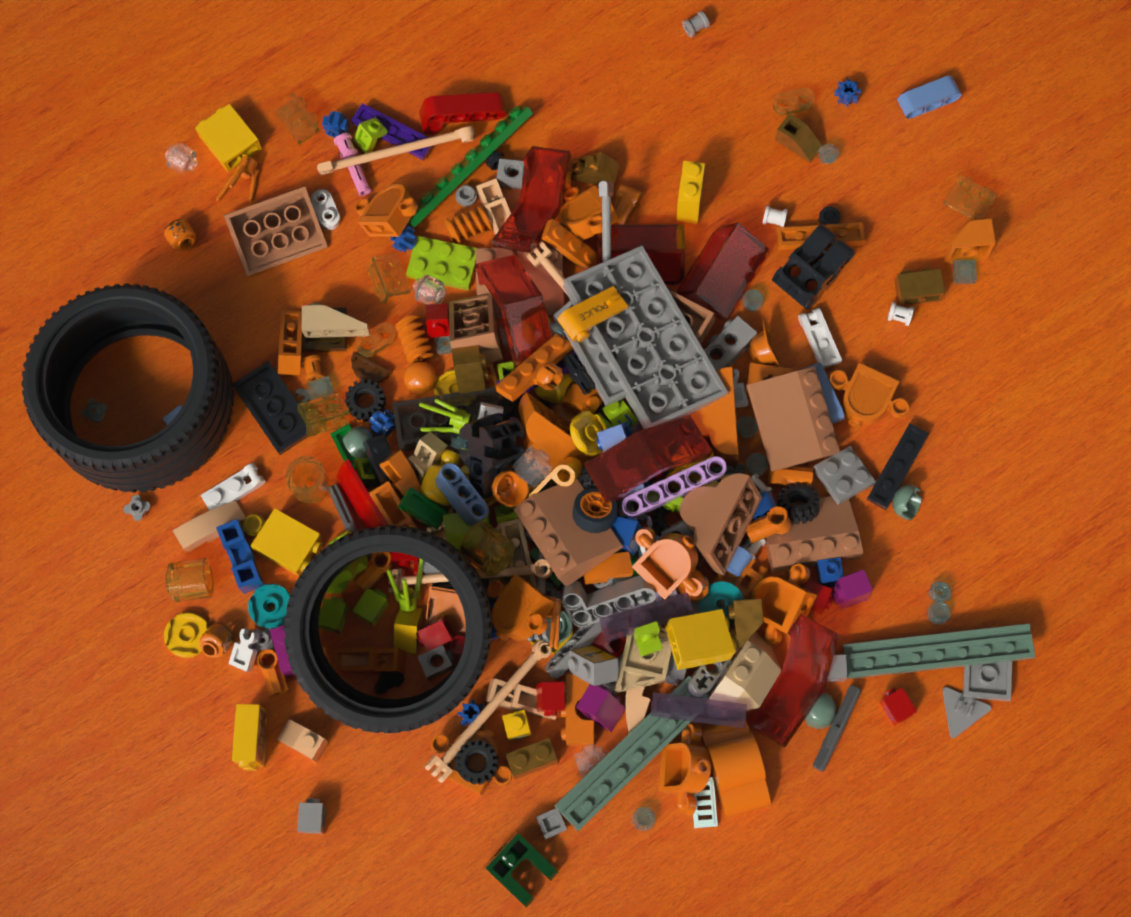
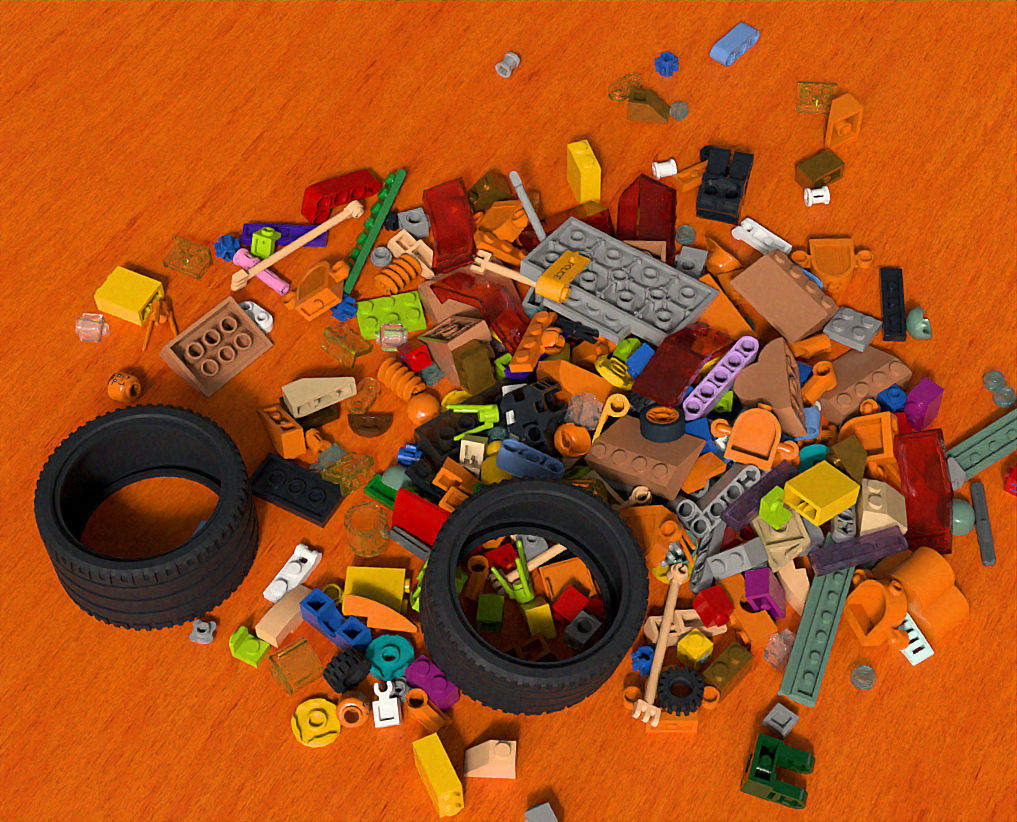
camera: 30 degrees left, 20 degrees down
(165, 540) = (248, 647): none -> lime bracket
(227, 604) = (347, 670): none -> black tyre
(274, 568) = (378, 614): none -> orange slope
(359, 389) = (379, 437): black tyre -> none
(803, 494) = (837, 355): black tyre -> none
(964, 272) = (847, 149): clear light blue plate -> none

